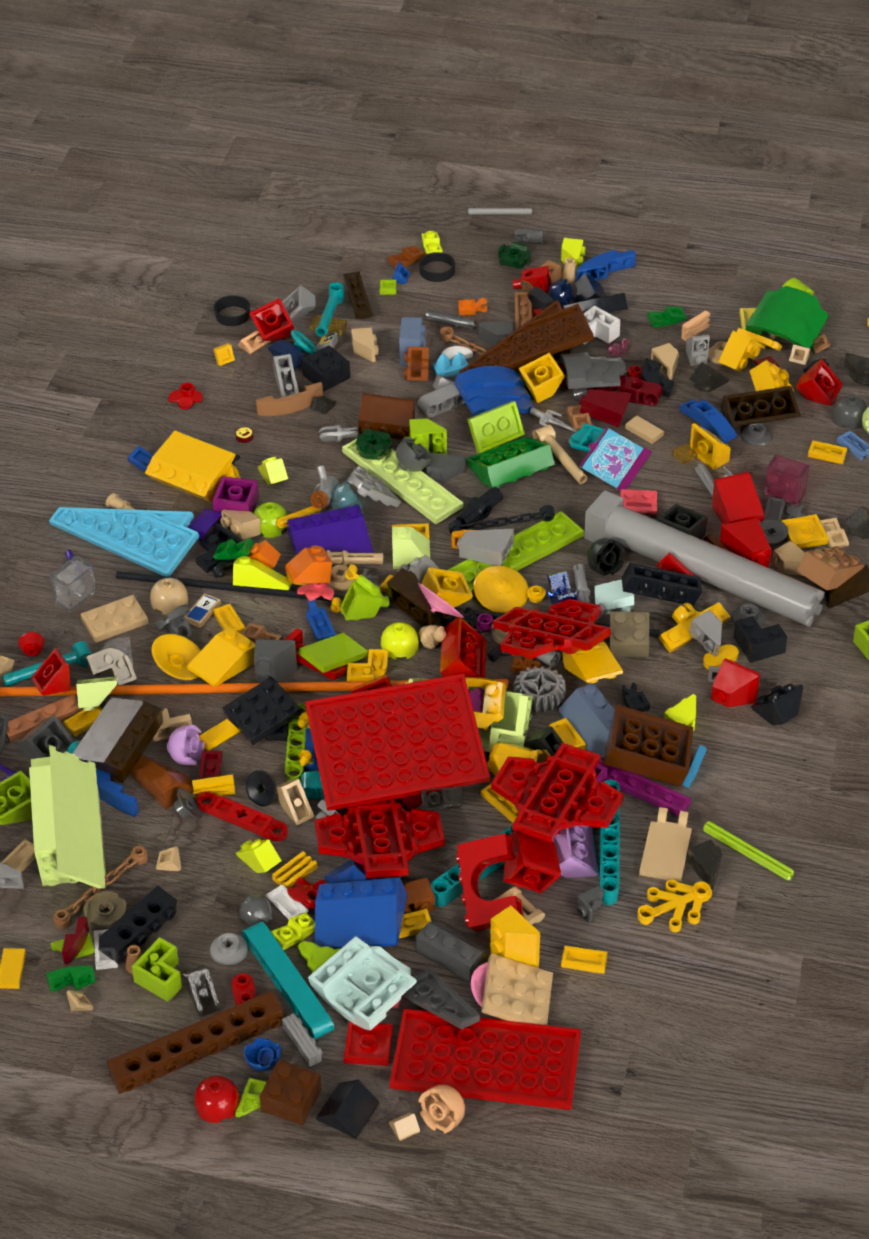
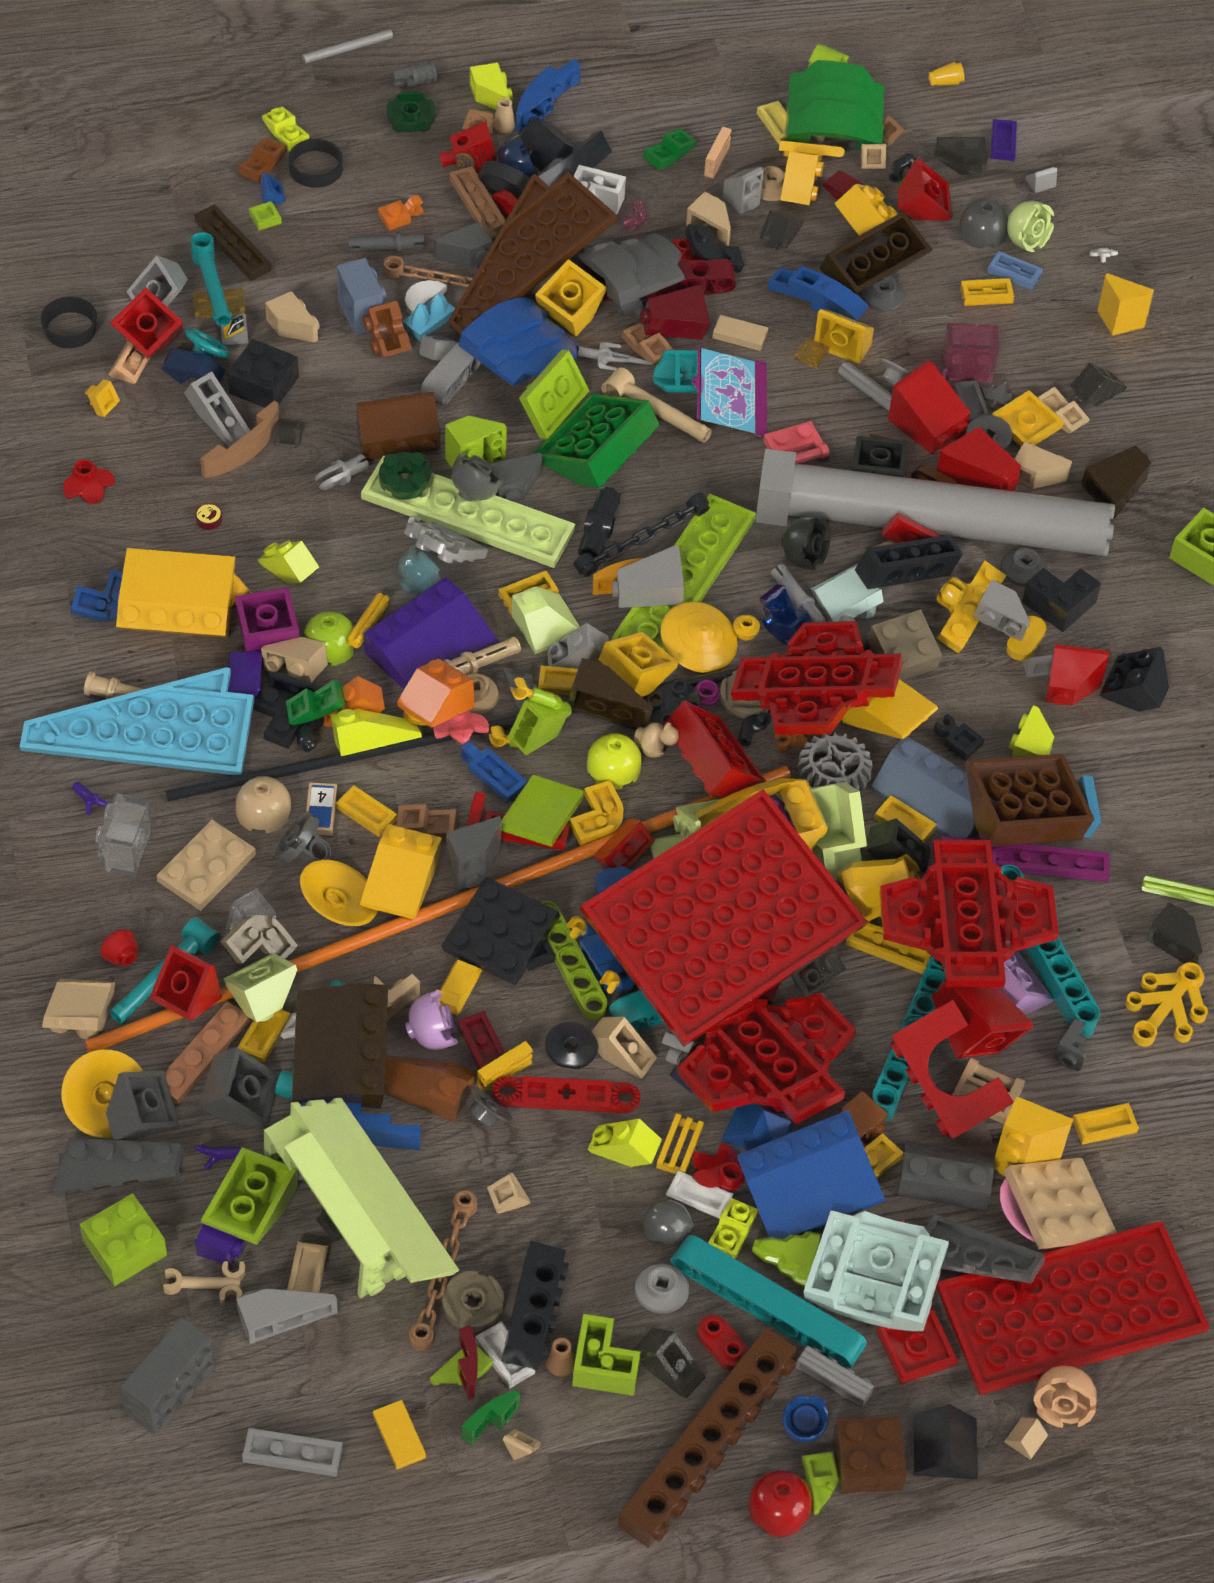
camera: 30 degrees left, 10 degrees up
(323, 491) = (381, 568): piece -> none
(438, 603) = (658, 694): bright pink hat -> none
(666, 847) = (1114, 931): tan tile -> none
(829, 566) = (1099, 465): medium nougat slope -> none

